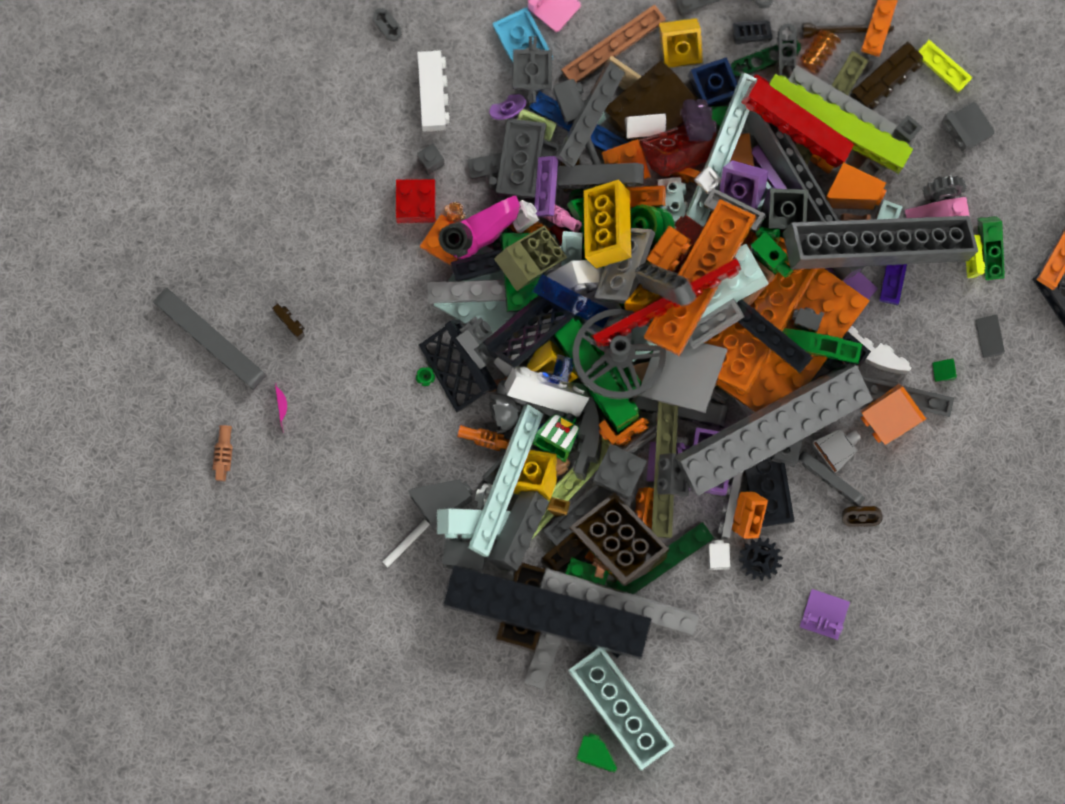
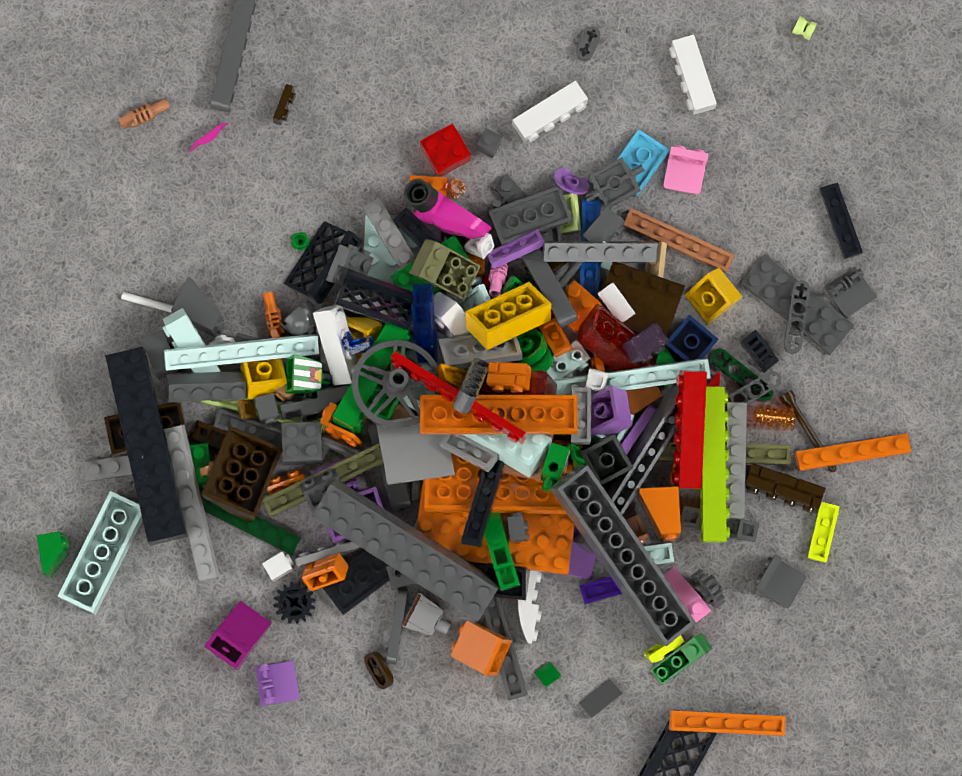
camera: 60 degrees right, 0 degrees up
(568, 487) = (267, 408): none -> dark grey brick
(763, 625) = (238, 635): none -> magenta slope

